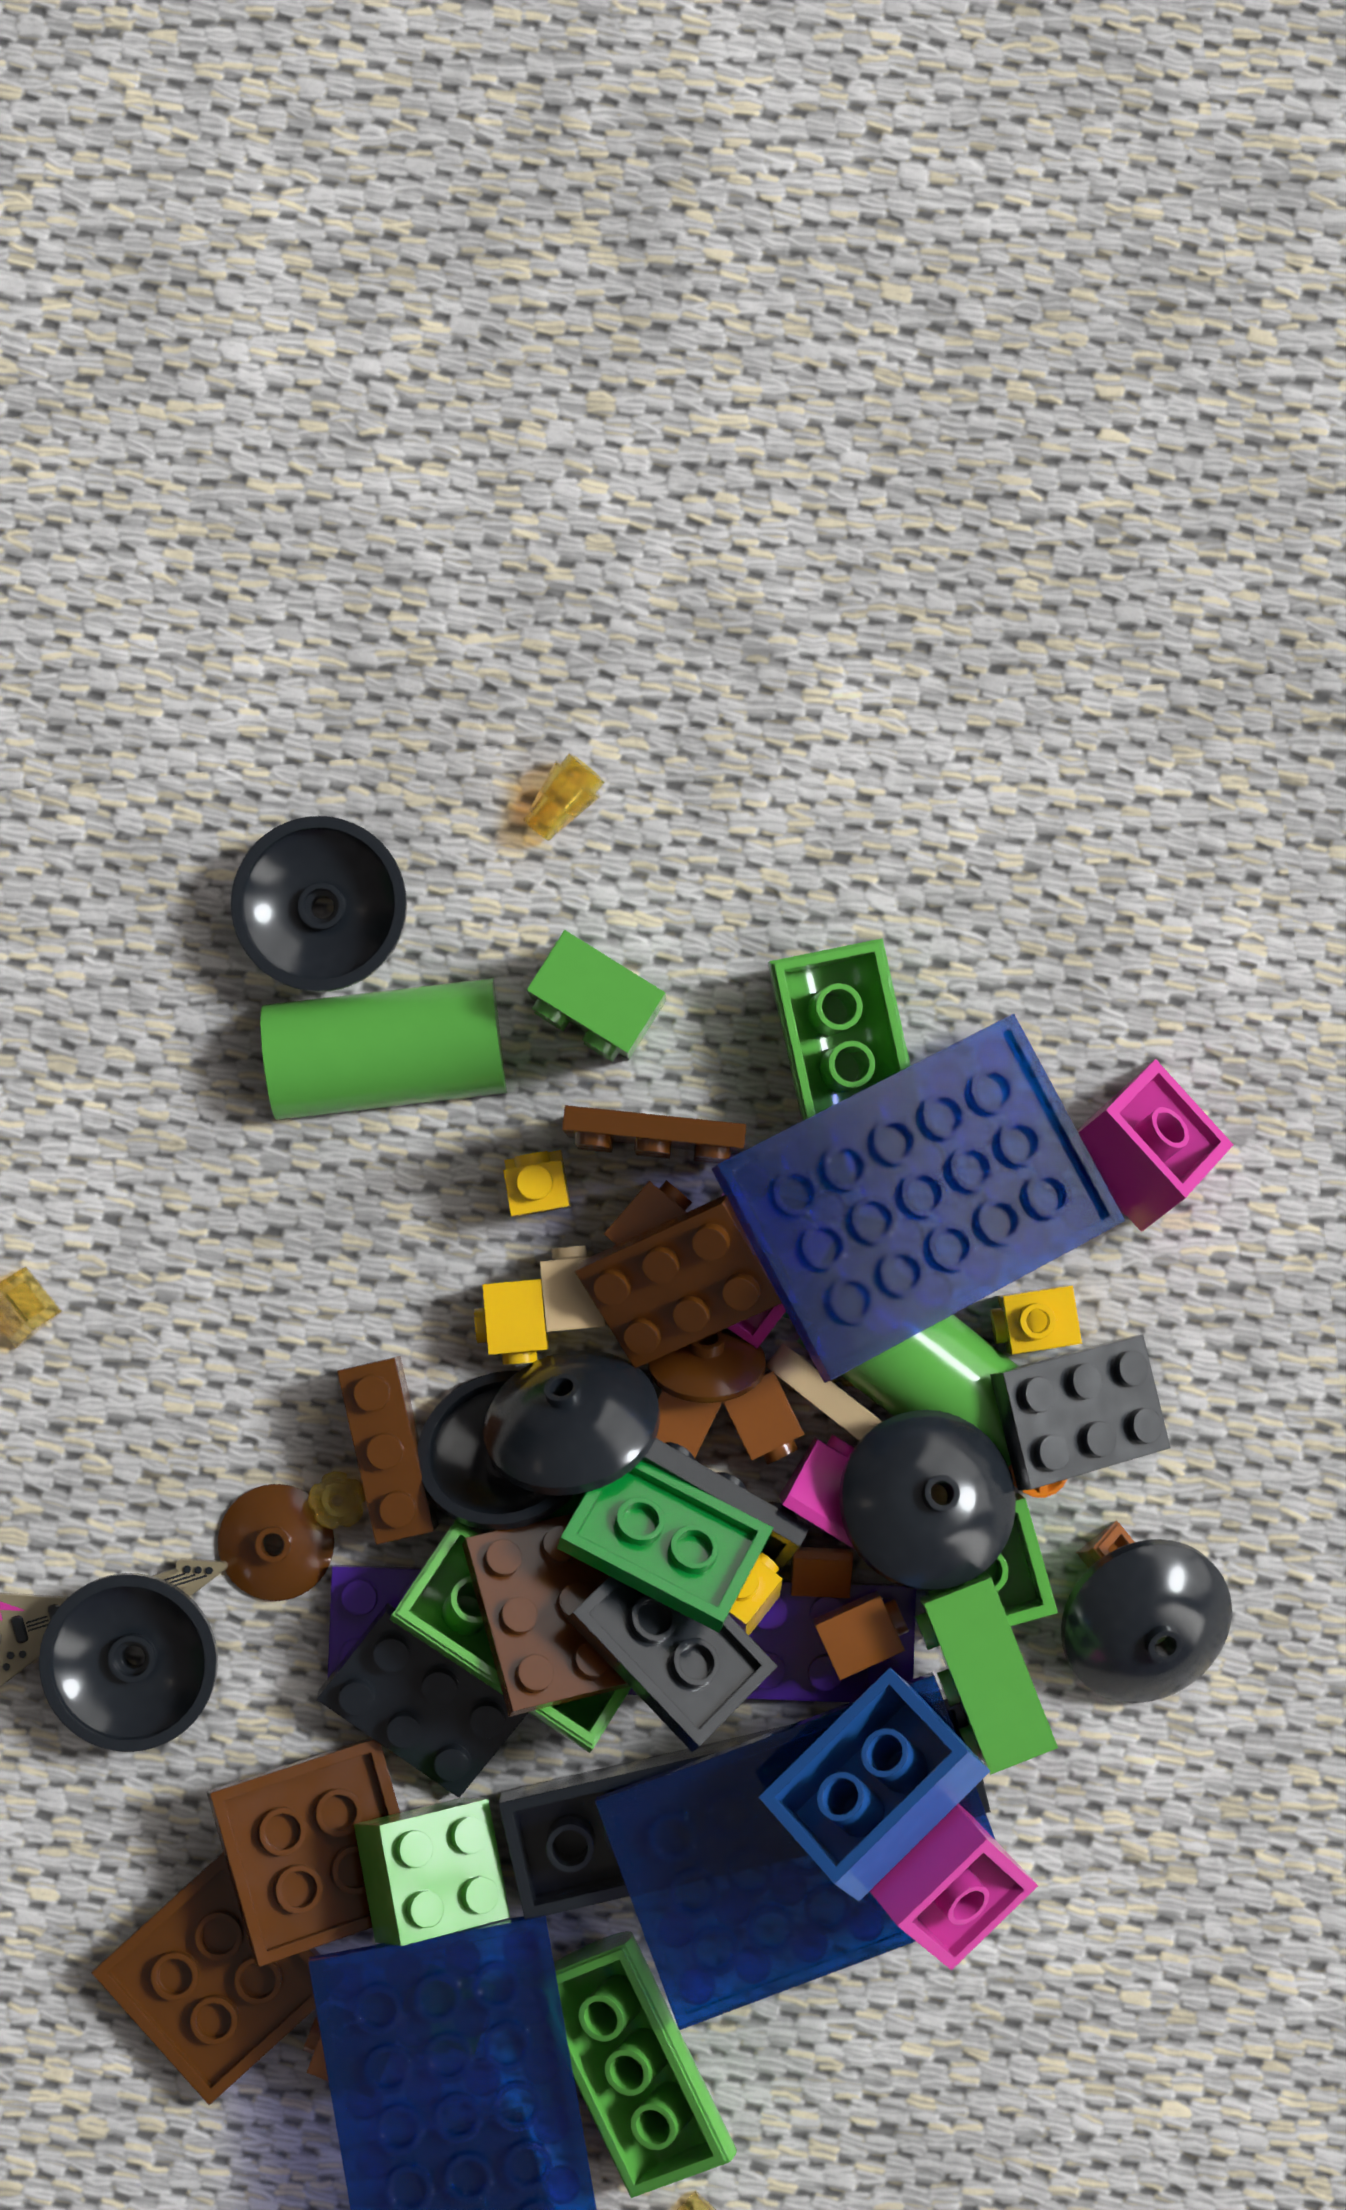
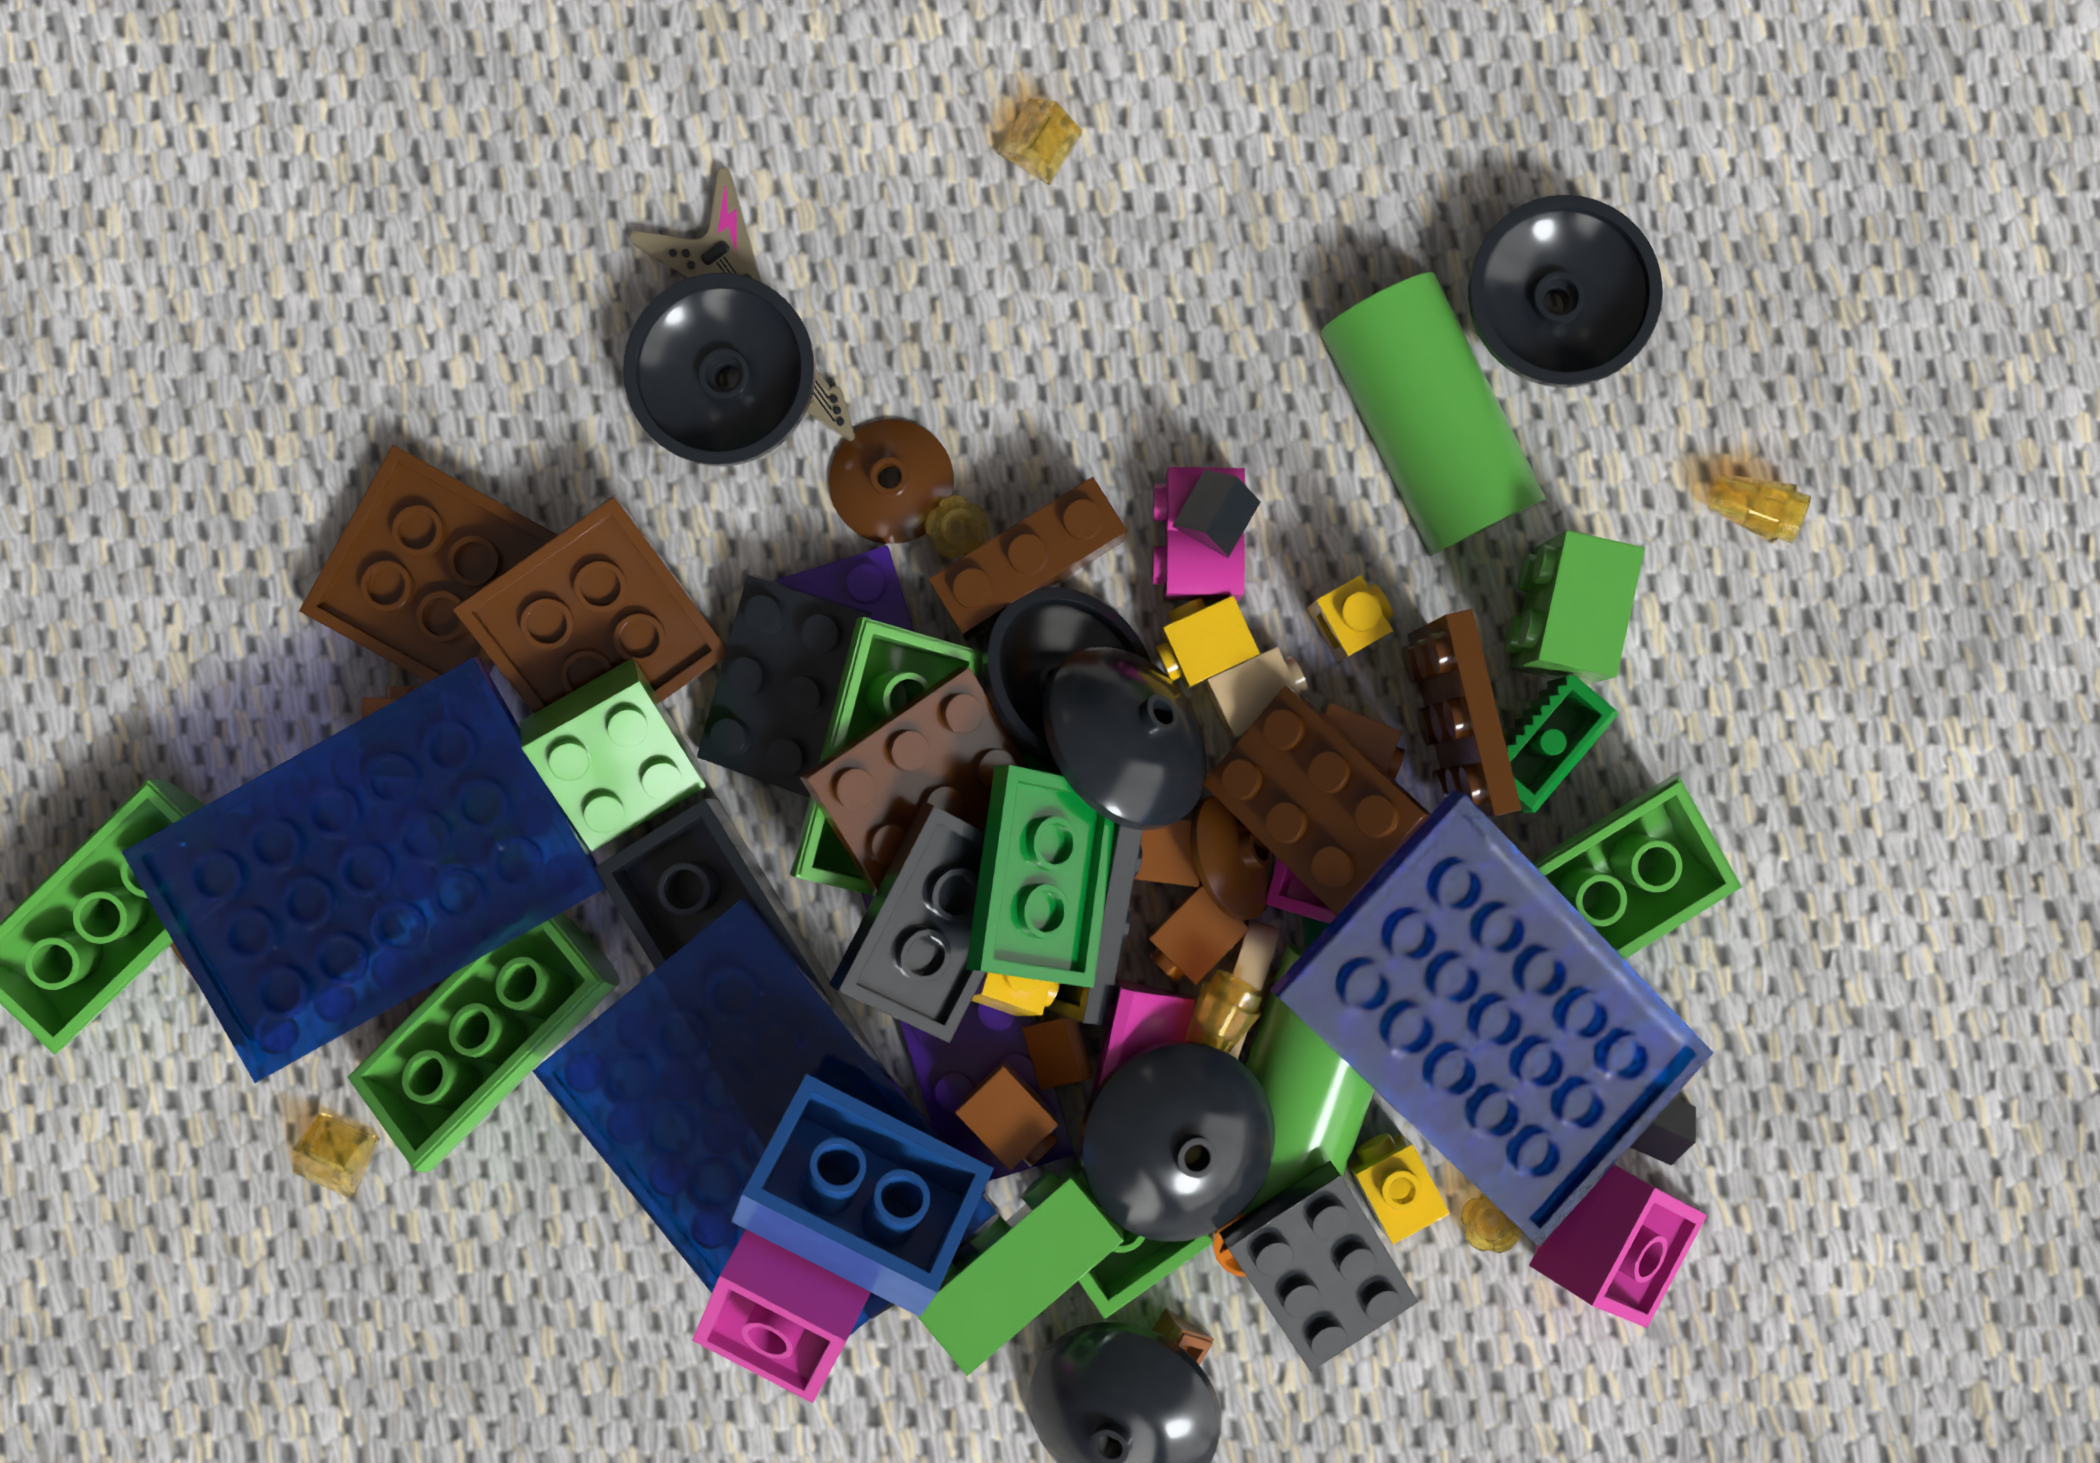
camera: 70 degrees right, 0 degrees up
(406, 1274) = (1217, 511): none -> black slope
(418, 1289) = (1183, 563): none -> dark pink brick
(703, 1059) = (1554, 737): none -> green brick
(834, 1419) = (1224, 1011): none -> clear yellow cone
(1069, 1071) = (1669, 1133): none -> black slope
(1106, 1259) = (1480, 1235): none -> clear yellow plate

